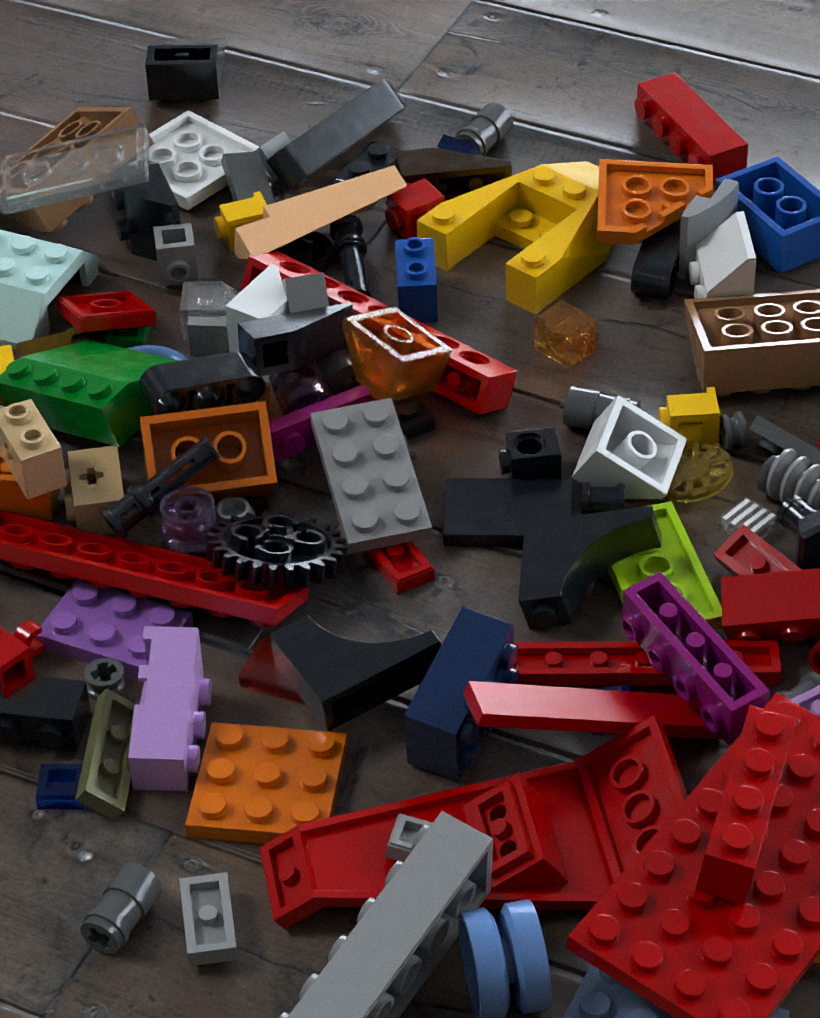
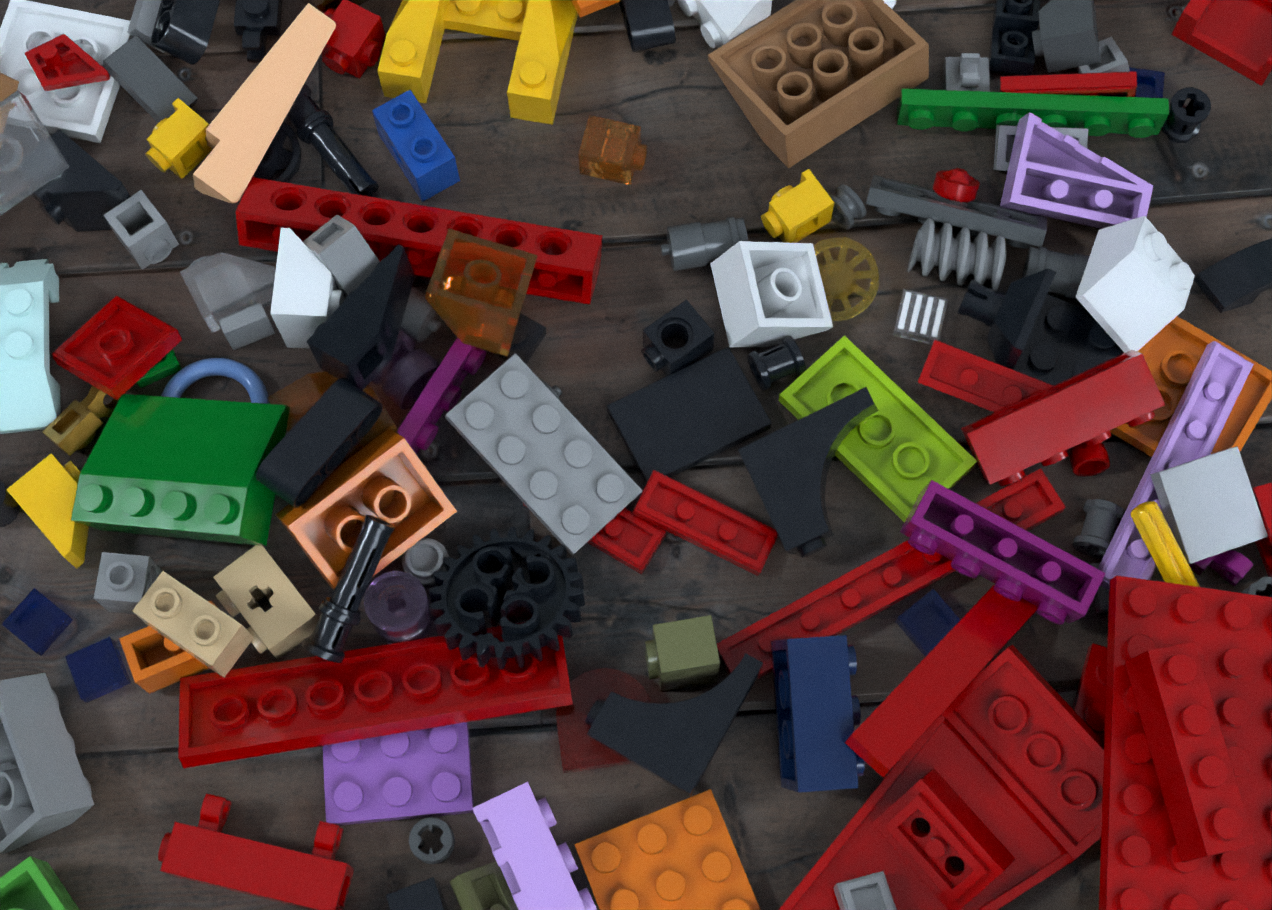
camera: 30 degrees left, 30 degrees up
(194, 150) = (64, 64): none -> red piece
(385, 612) = (683, 653): none -> olive brick
(469, 572) = (705, 522): none -> red tile

